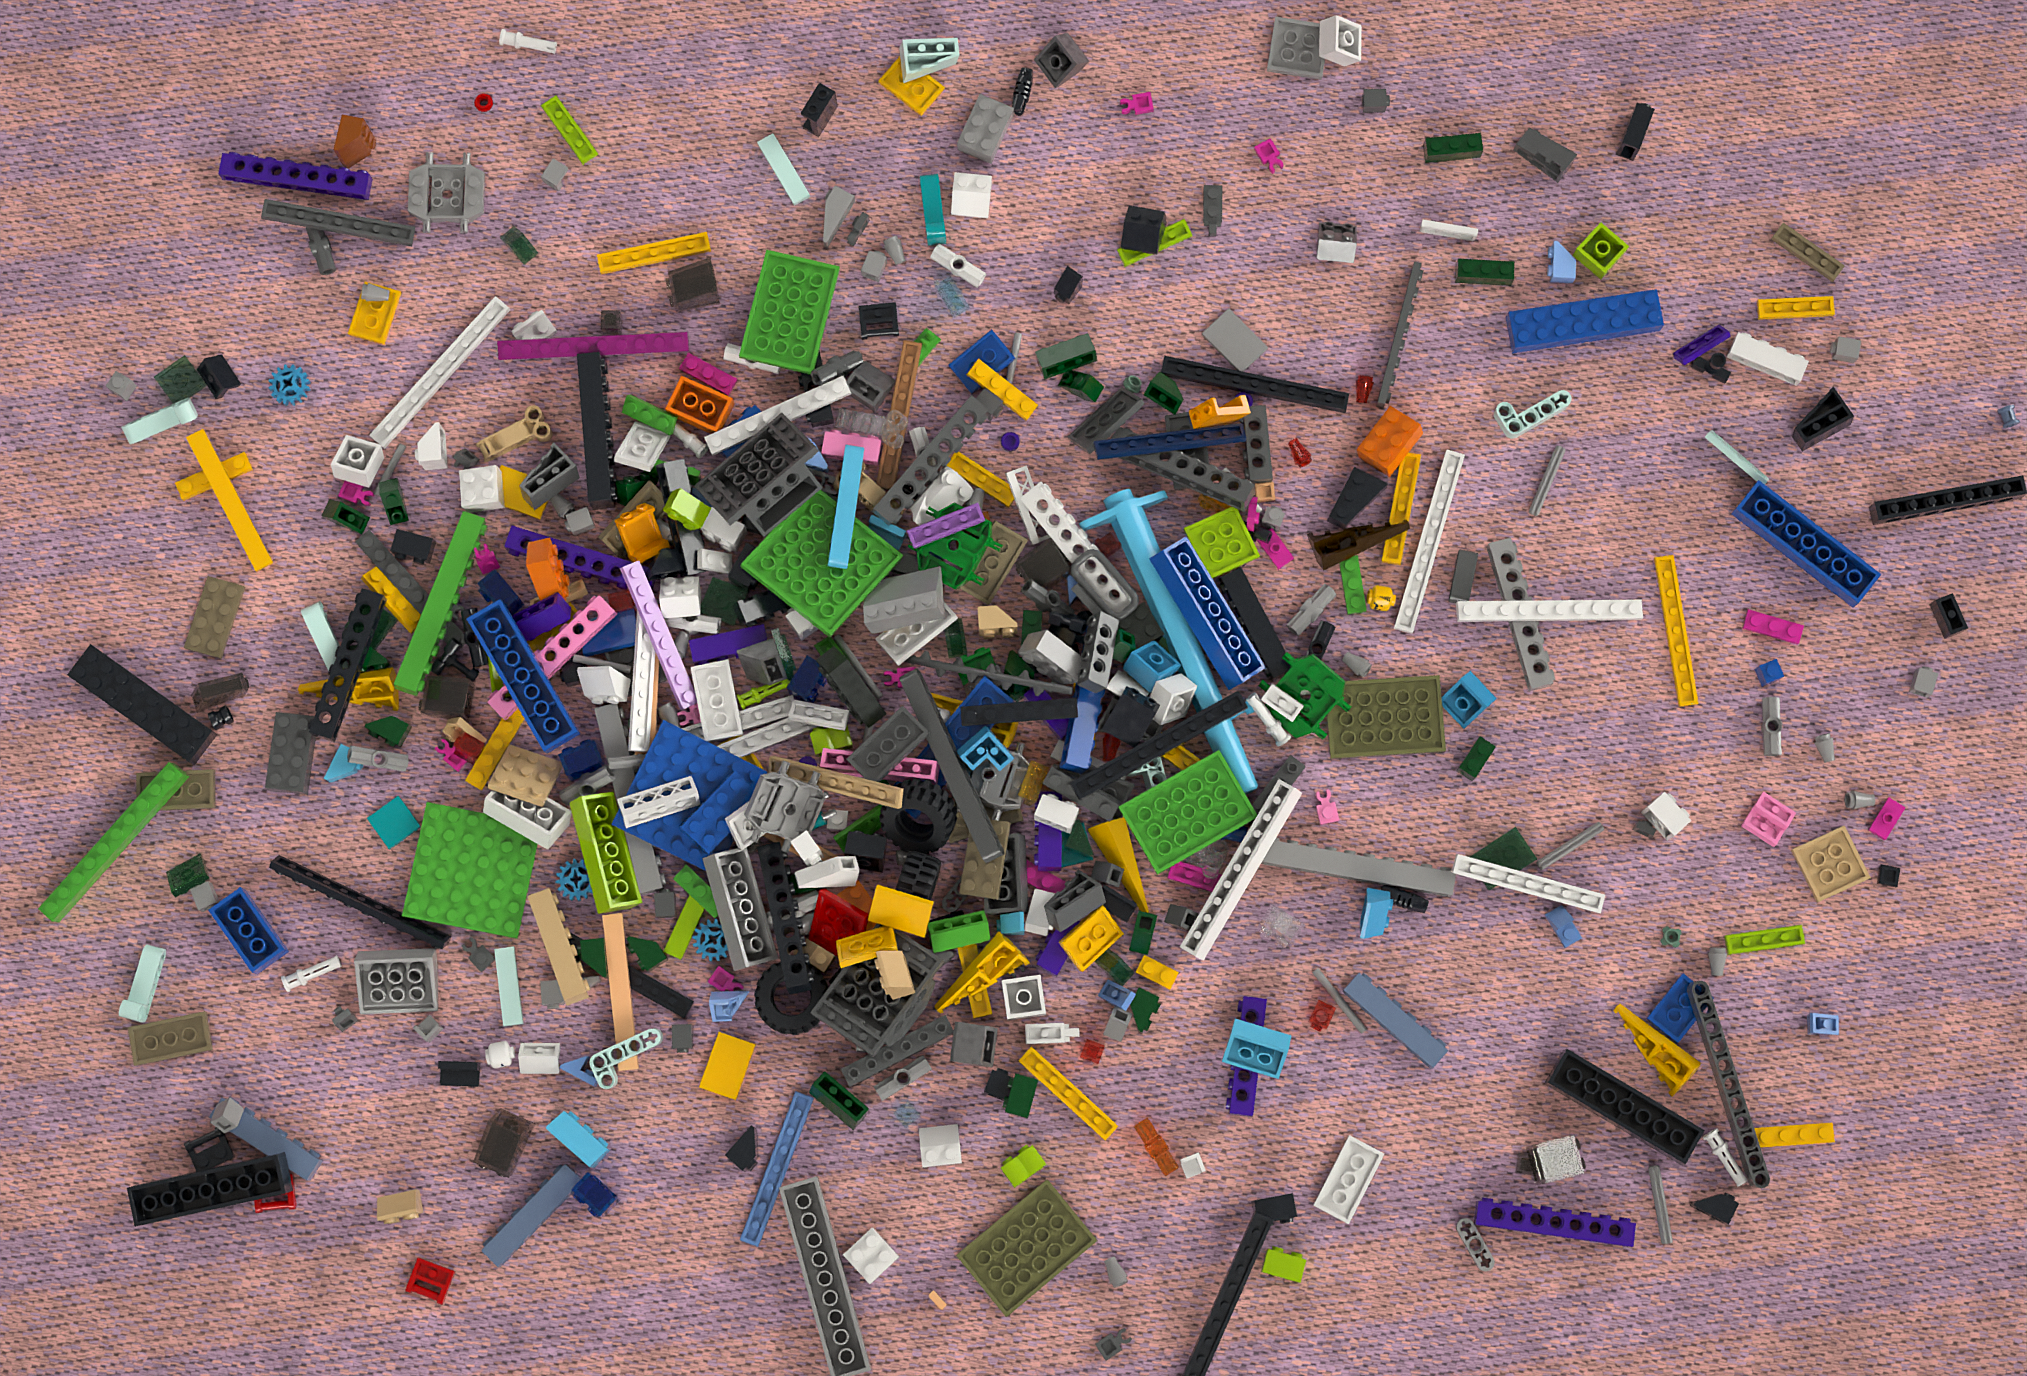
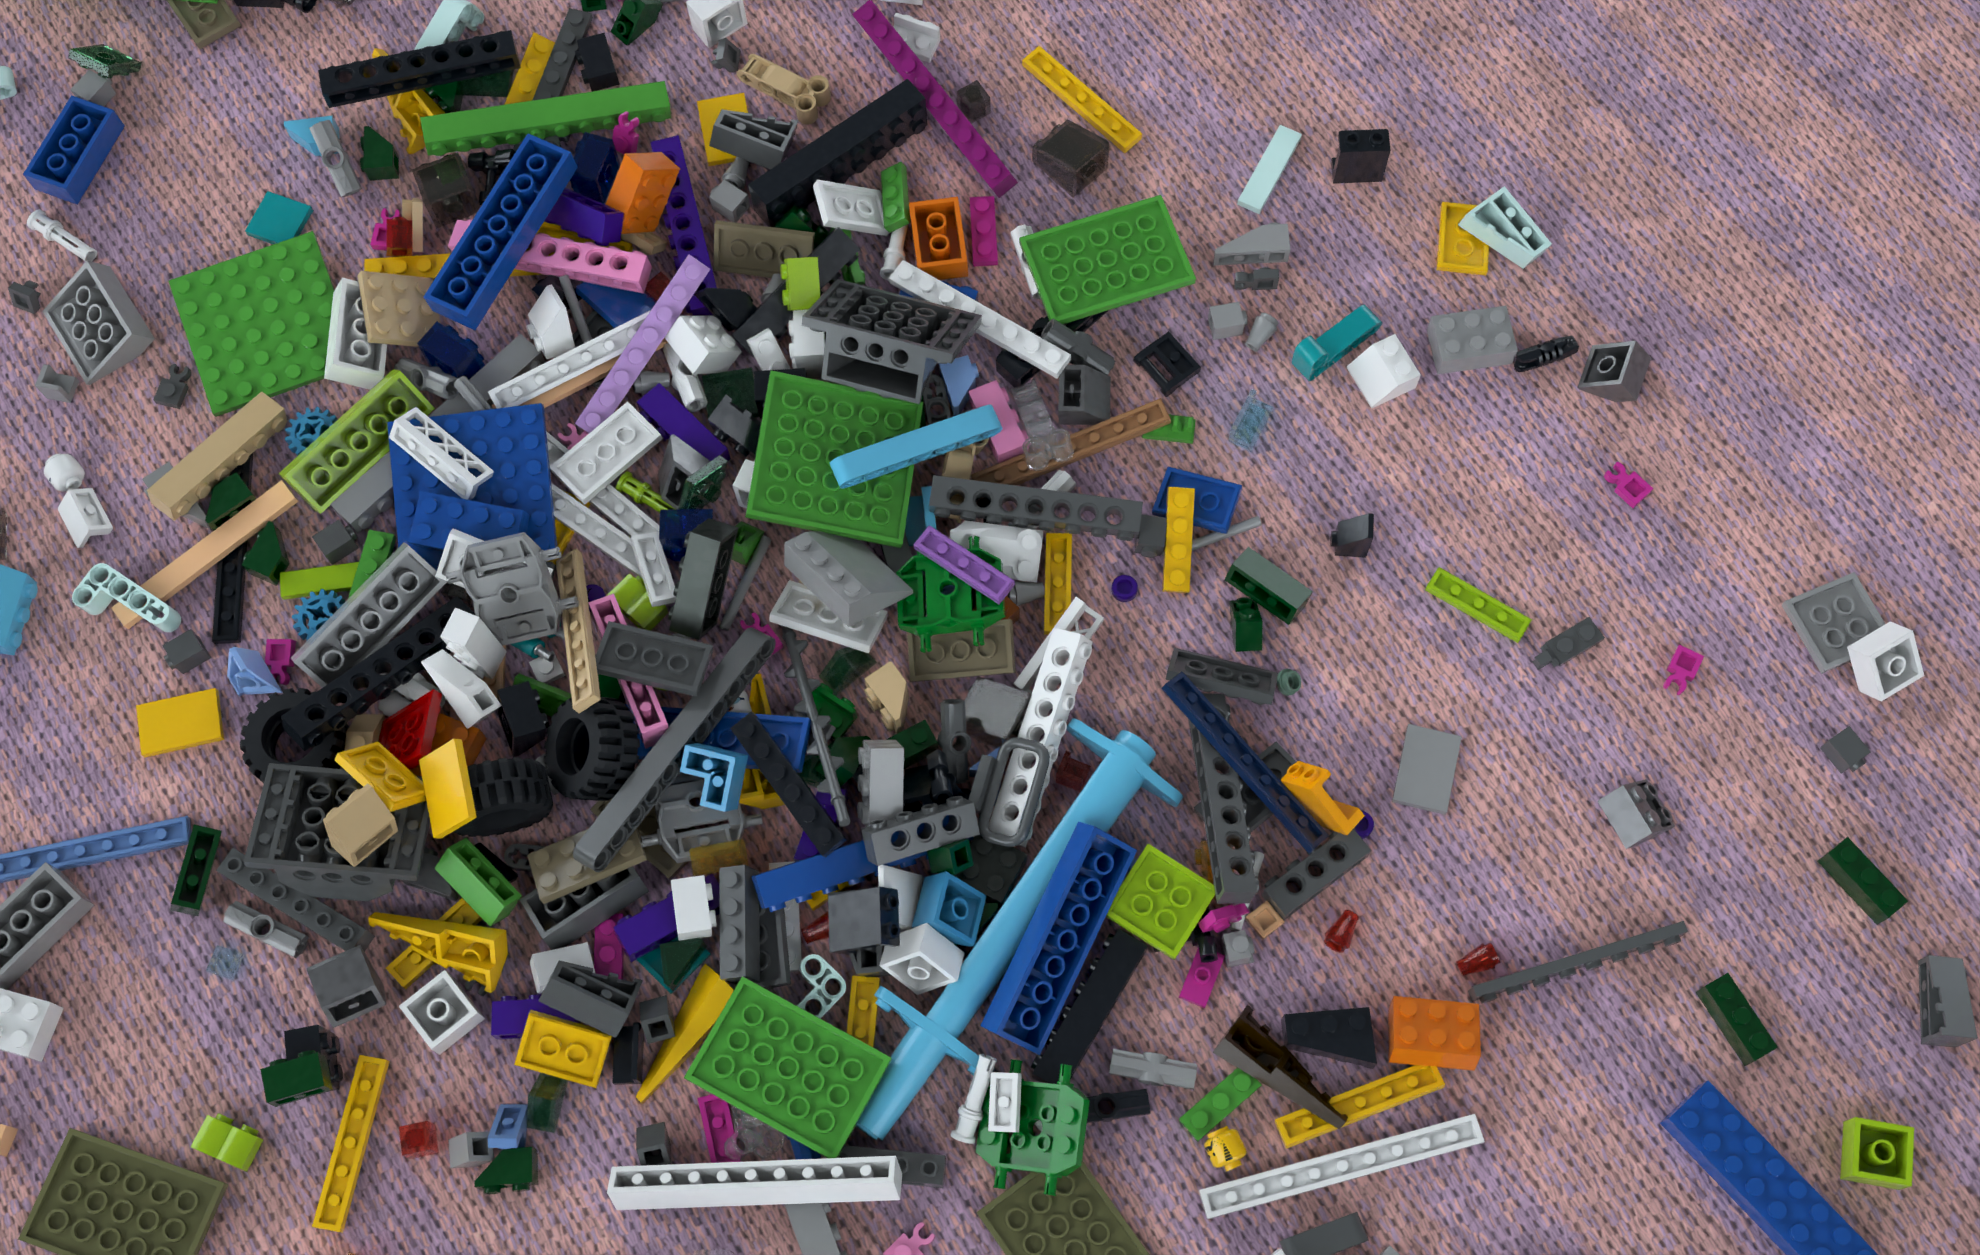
camera: 60 degrees right, 10 degrees down
(290, 754) = (290, 80): dark grey brick -> none
(359, 901) = (167, 237): black plate -> none
(459, 1073) = (24, 445): black panel -> none
(481, 489) = (702, 86): white brick -> none
(508, 986) = (152, 438): light aqua tile -> none
(576, 1069) = (84, 560): medium blue slope -> none
(640, 533) = (751, 261): light orange panel -> none
(668, 713) = (562, 415): light grey cone -> none
(745, 1150) = (77, 799): black slope -> none
(940, 1146) = (201, 1025): white slope -> none
(967, 272) = (1291, 394): white piece -> none
(1011, 924) = (526, 941): medium azure slope -> none
(1049, 1033) = (417, 1073): white hinge -> none
(1143, 229) = (1483, 578): black slope -> none
(1143, 932) = (609, 1109): dark green slope -> none
(1157, 972) = (569, 1160): yellow plate -> none
(1158, 745) = (850, 978): black plate -> none
(1164, 393) = (1303, 721): dark green slope -> none
(1255, 384) = (1391, 827): black plate -> none
(1357, 664) = (1120, 1174): light grey cone -> none
(1448, 230) = (1755, 941): white tile -> none
(1534, 411) = (1604, 1198): light aqua beam -> none
(1562, 264) = (1821, 1115): light blue slope -> none

